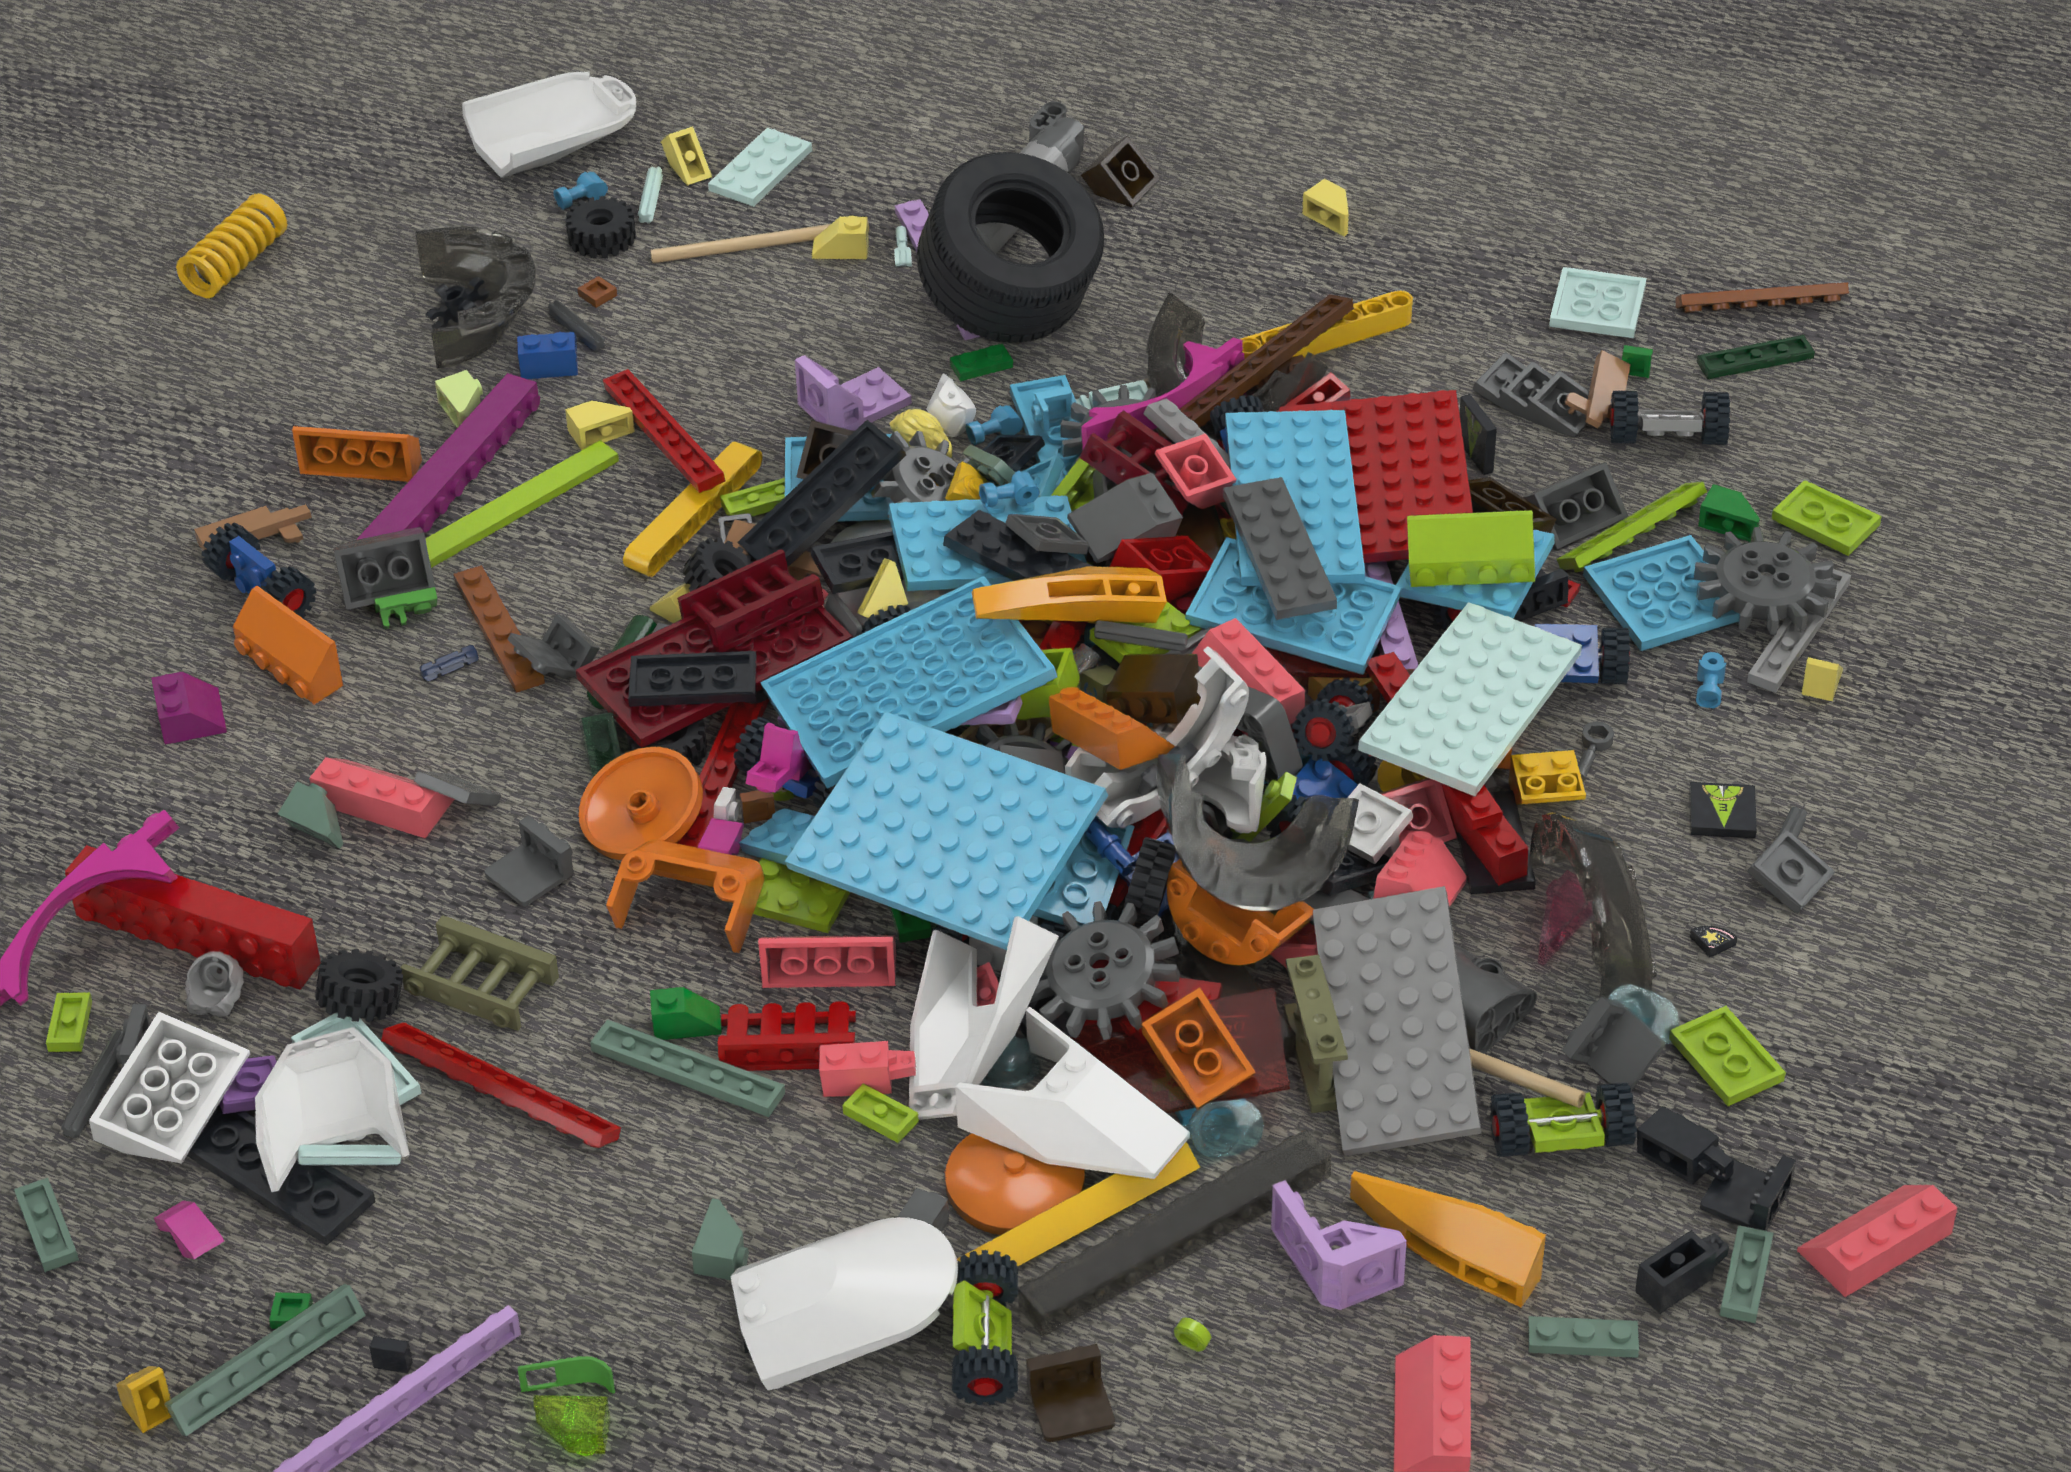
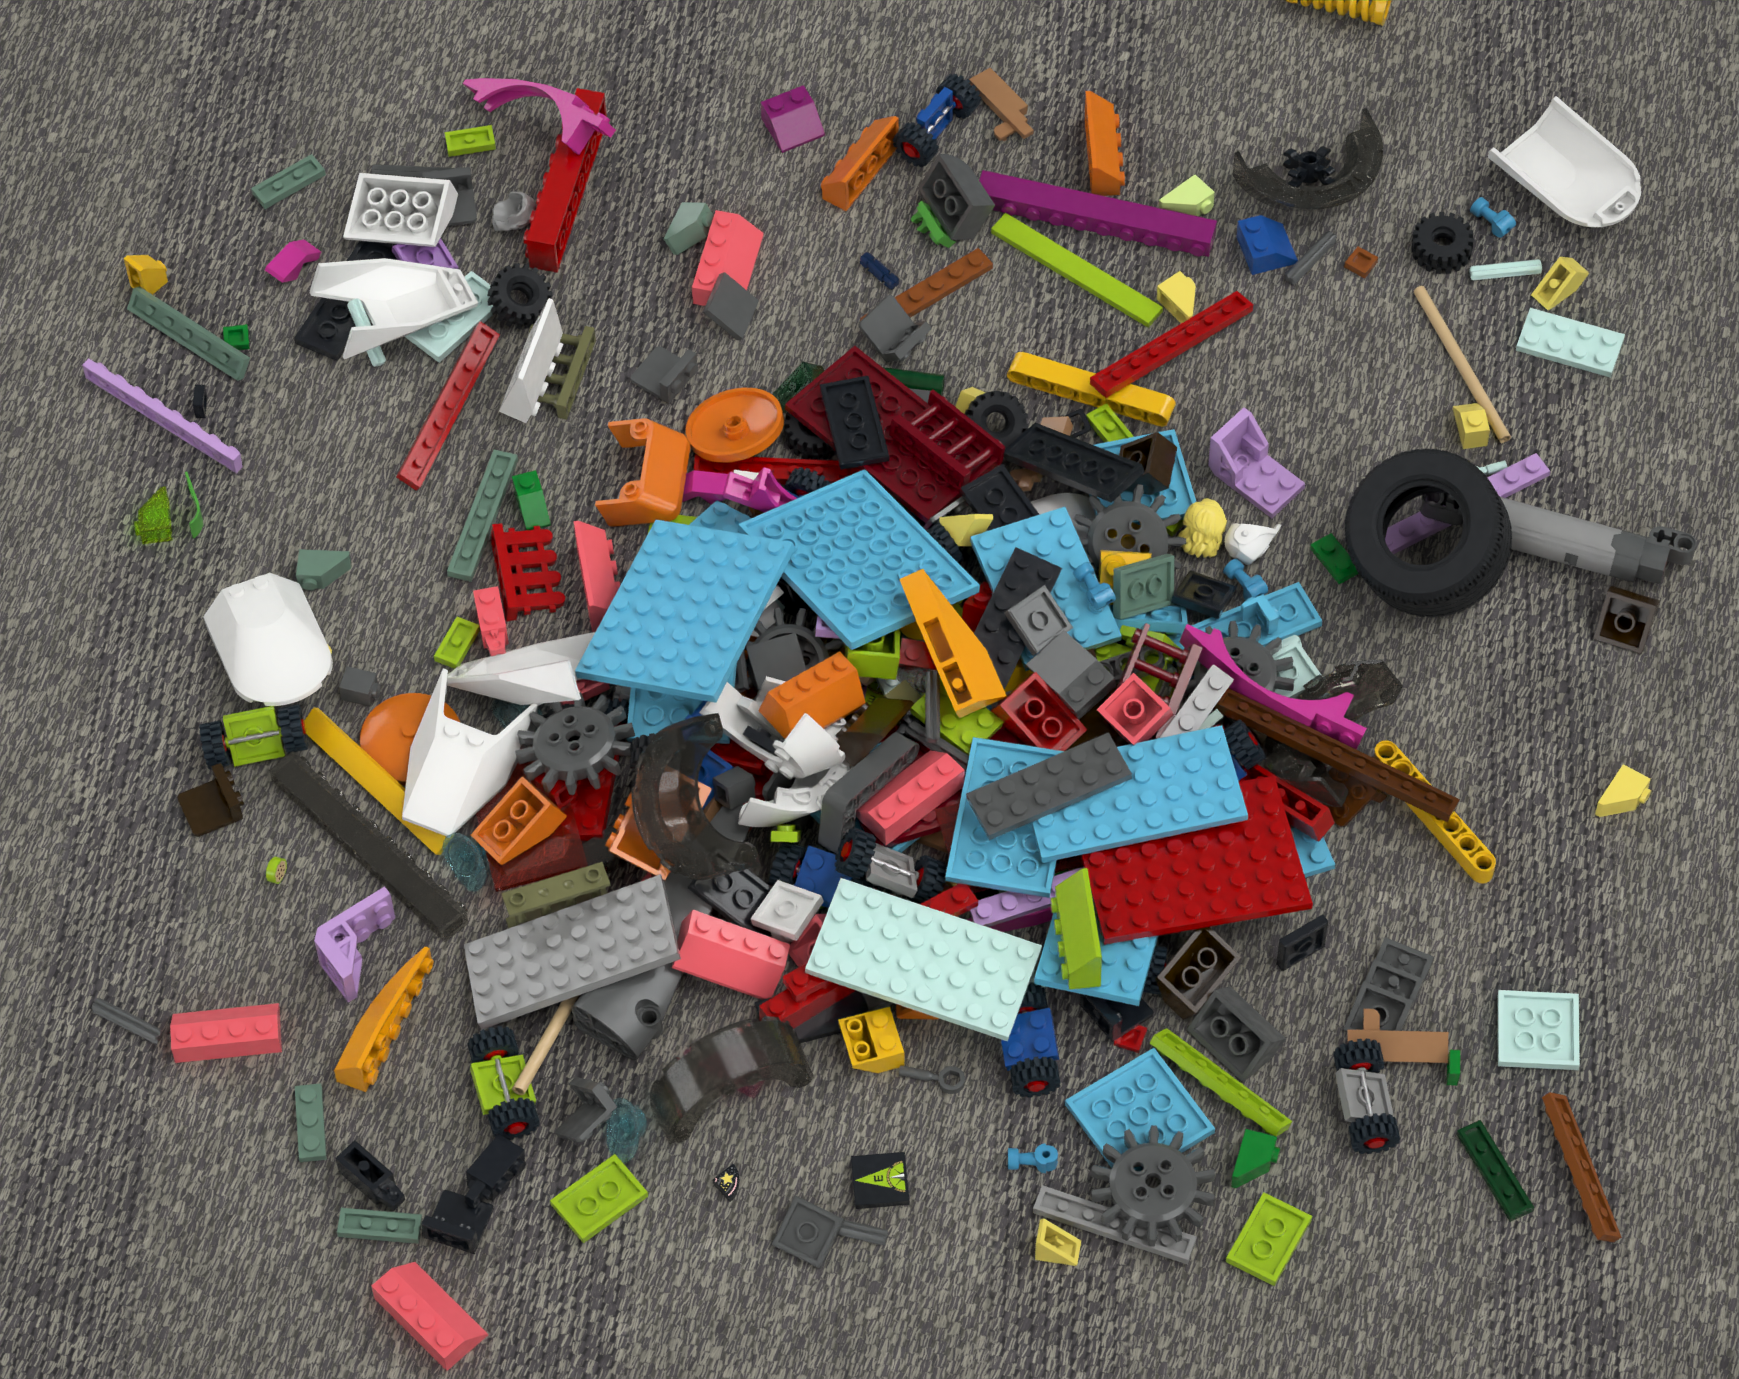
camera: 80 degrees right, 15 degrees up
(495, 955) = (534, 366): none -> white slope

